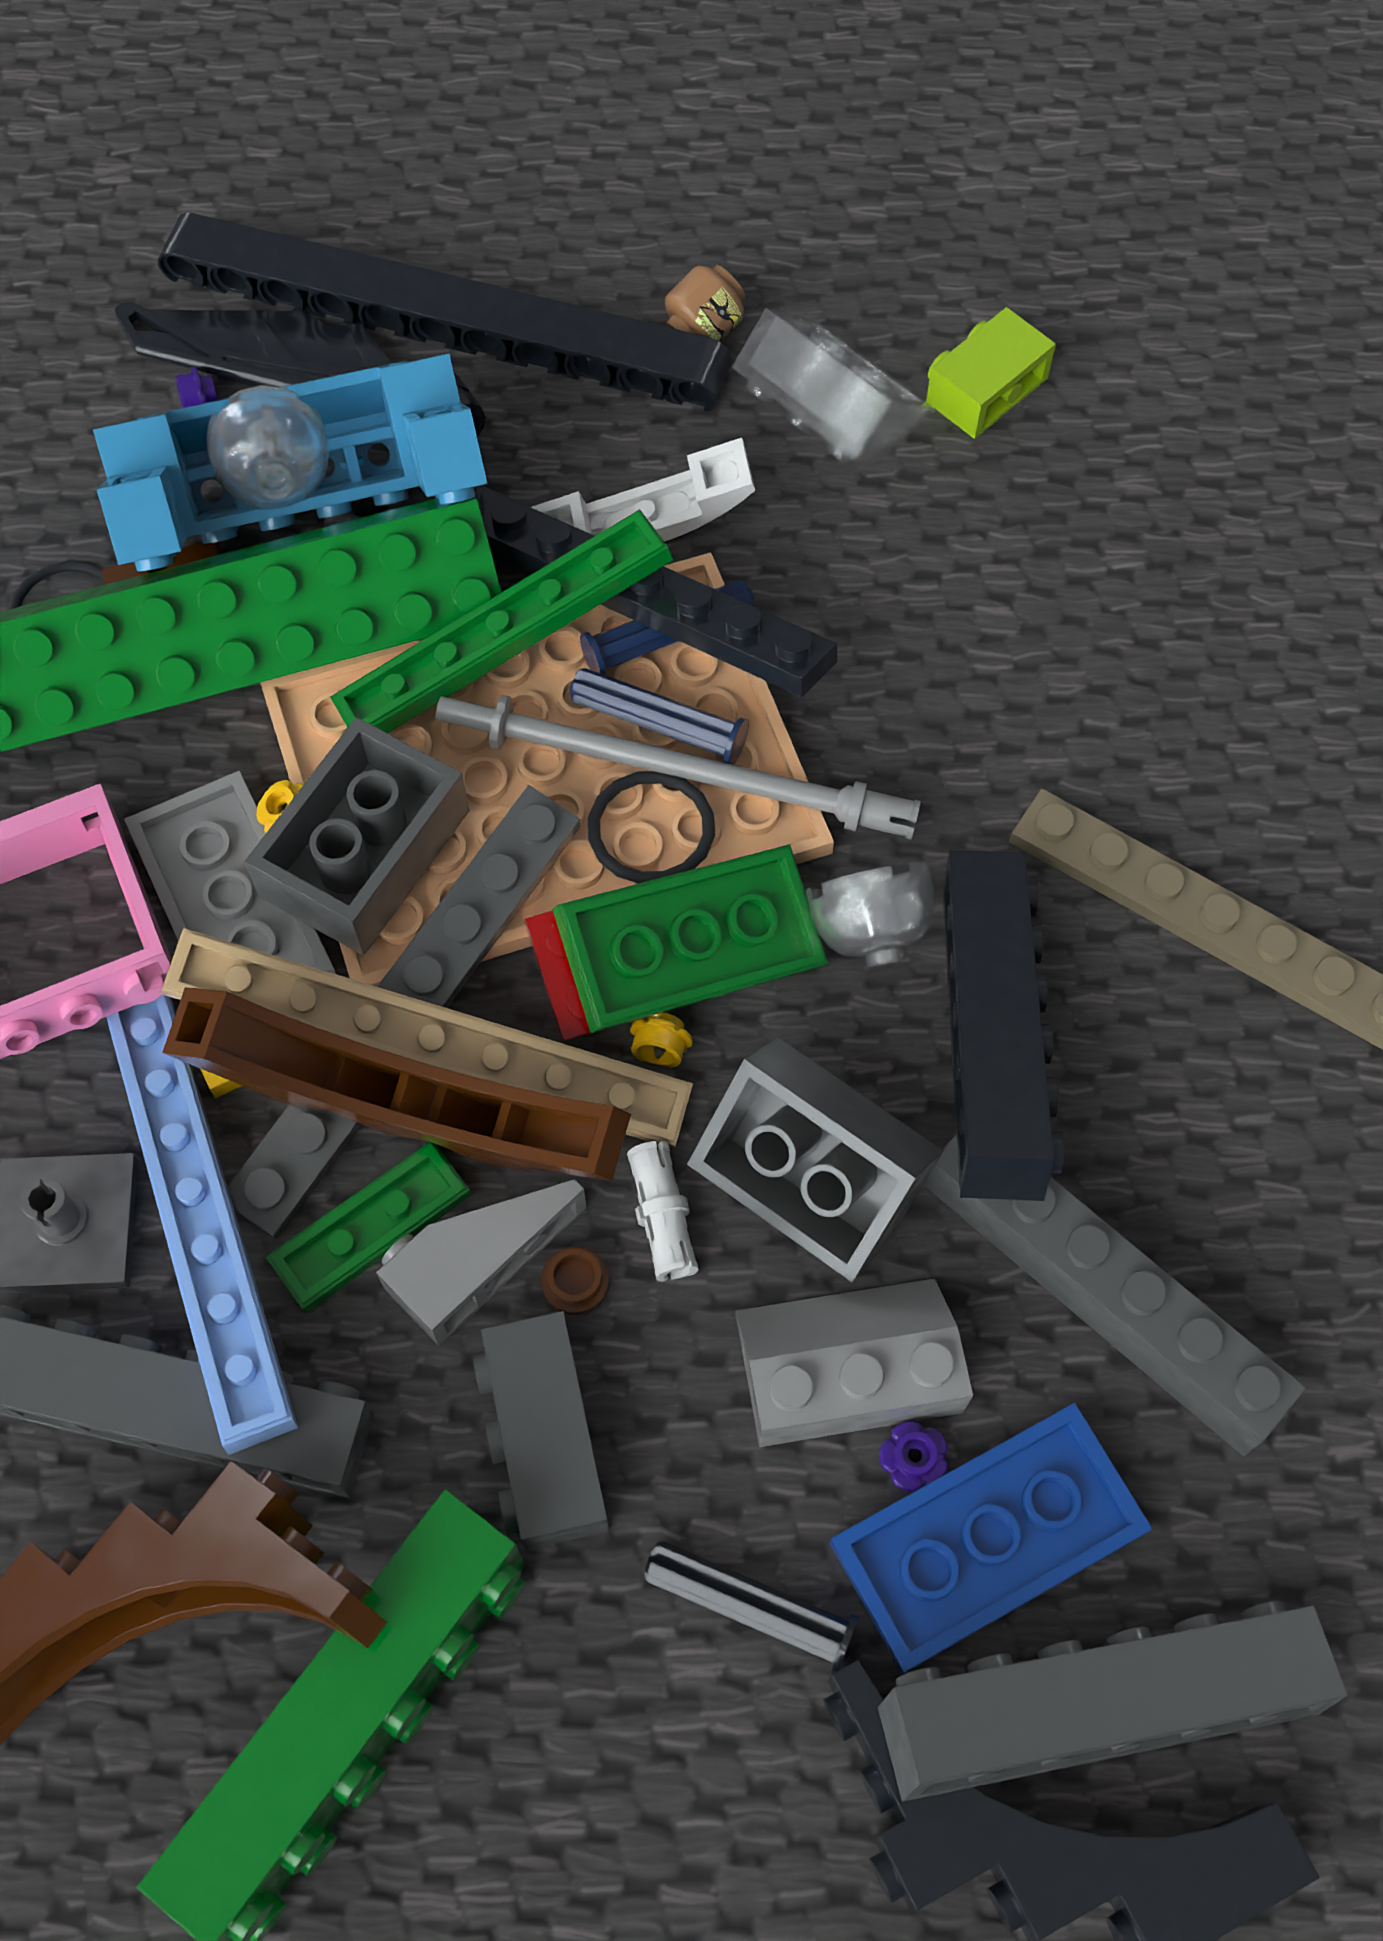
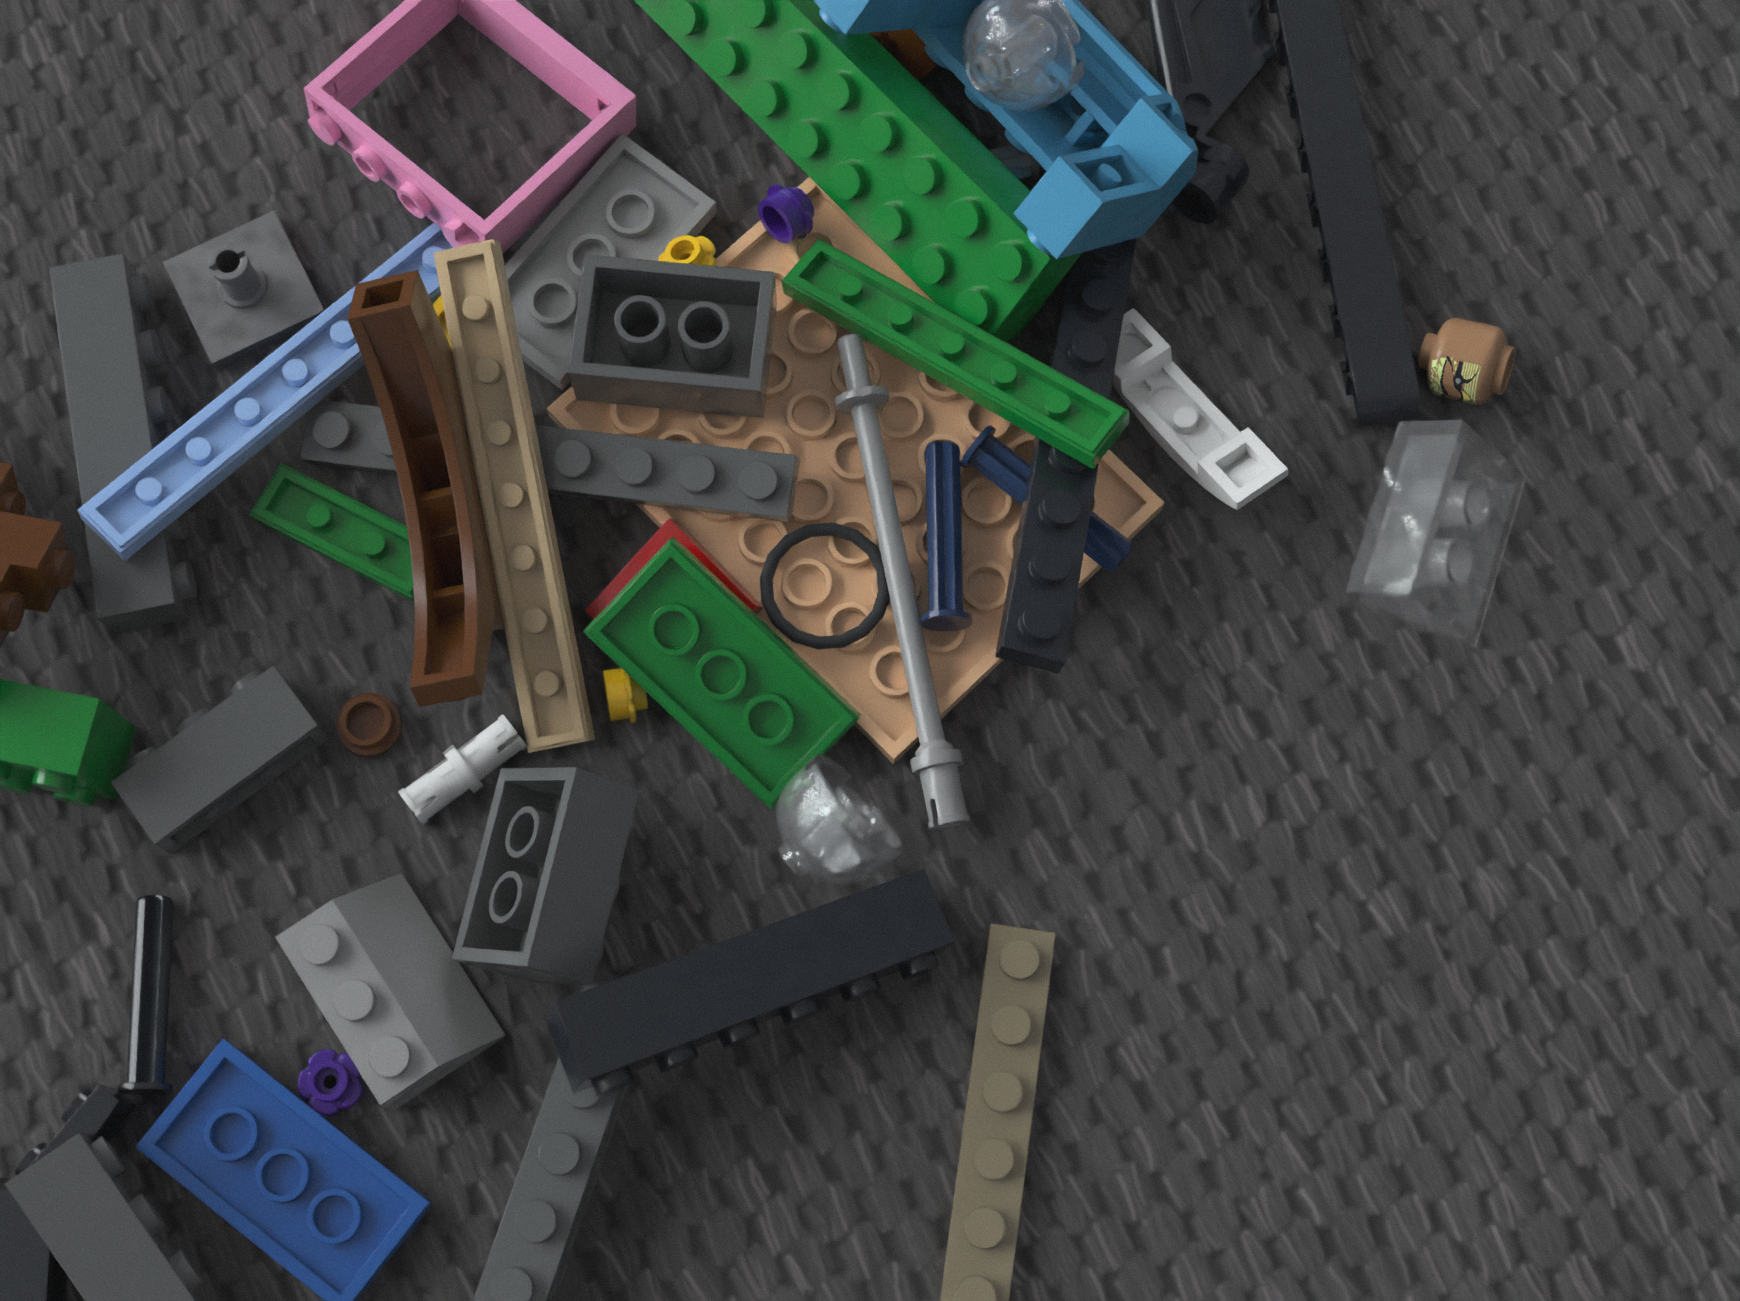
camera: 65 degrees right, 10 degrees up
(291, 711) = (786, 213): none -> dark purple plate
(467, 1258) = (329, 619): light grey slope -> none
(989, 372) = (1541, 680): lime brick -> none

